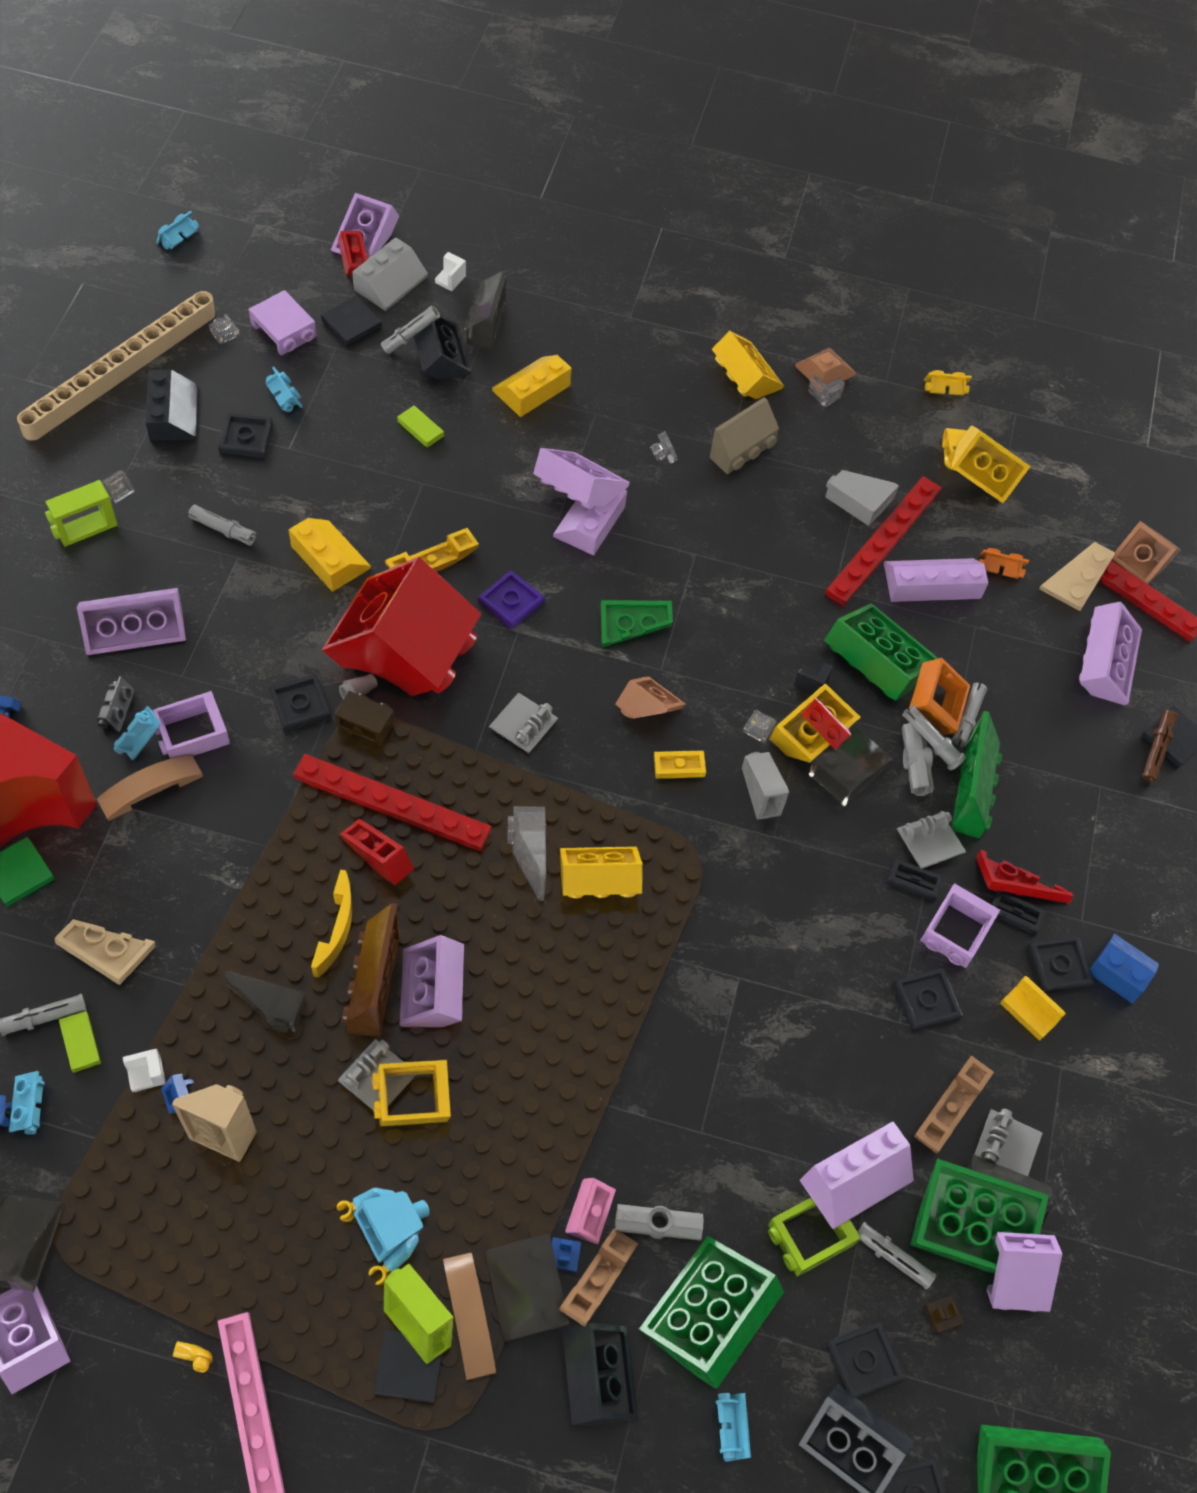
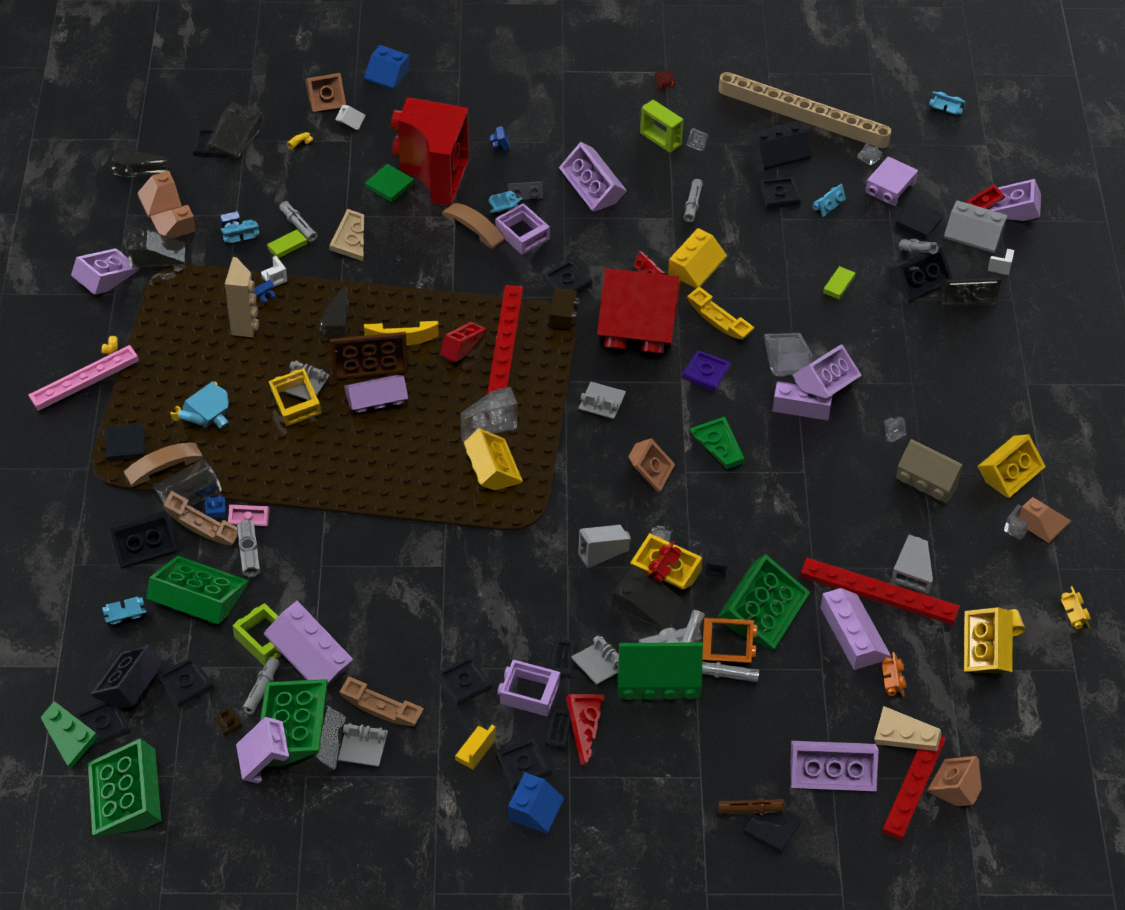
camera: 80 degrees right, 10 degrees down
(322, 607) = (645, 264): none -> red hinge
(358, 685) = (589, 303): light grey cone -> none
(417, 1313) = (151, 426): lime window -> none
(518, 508) = (787, 353): none -> clear slope
(534, 384) = (914, 337): yellow slope -> none
(679, 764) = (602, 494): yellow plate -> none

